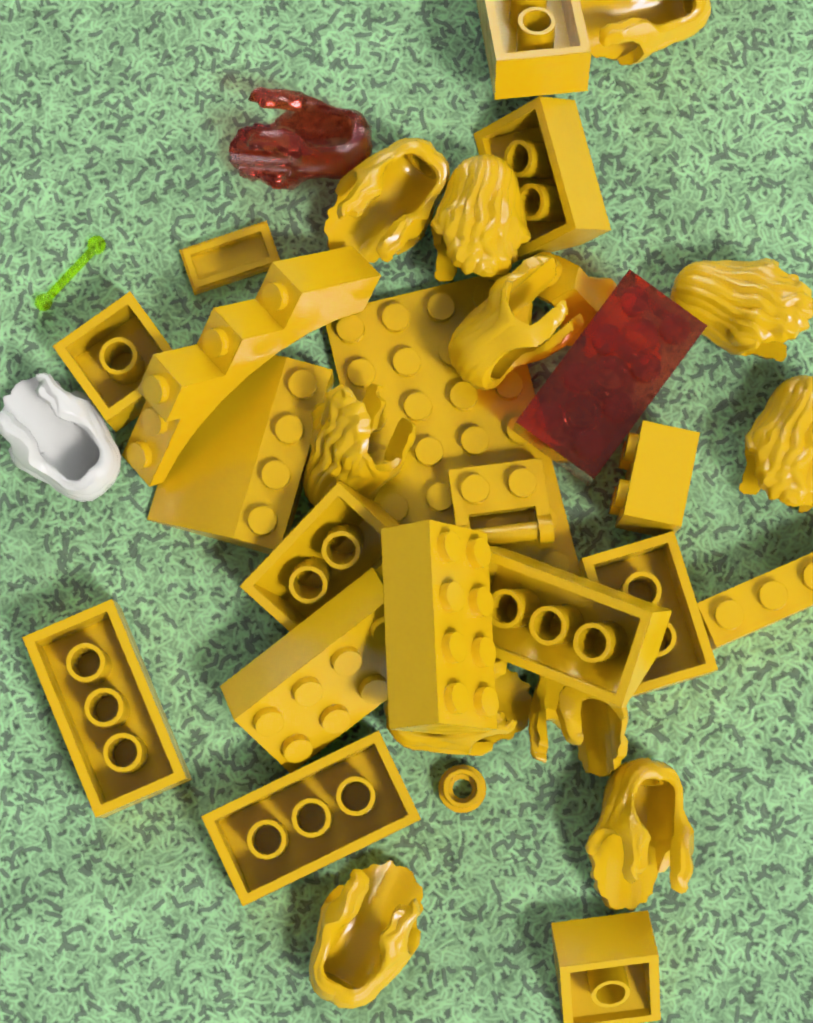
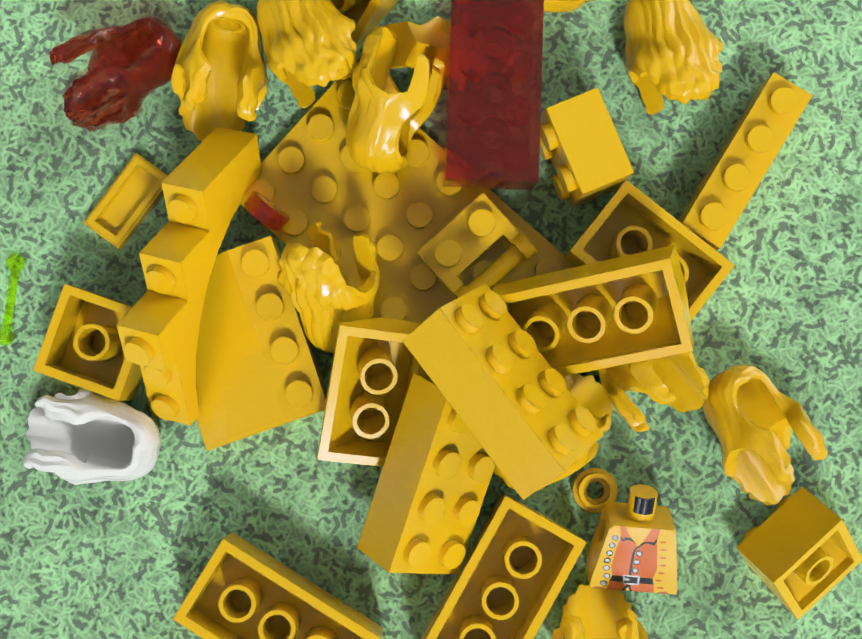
camera: 35 degrees left, 5 degrees up
(343, 347) = (266, 211): none -> clear red tile
(462, 857) = (634, 546): none -> torso

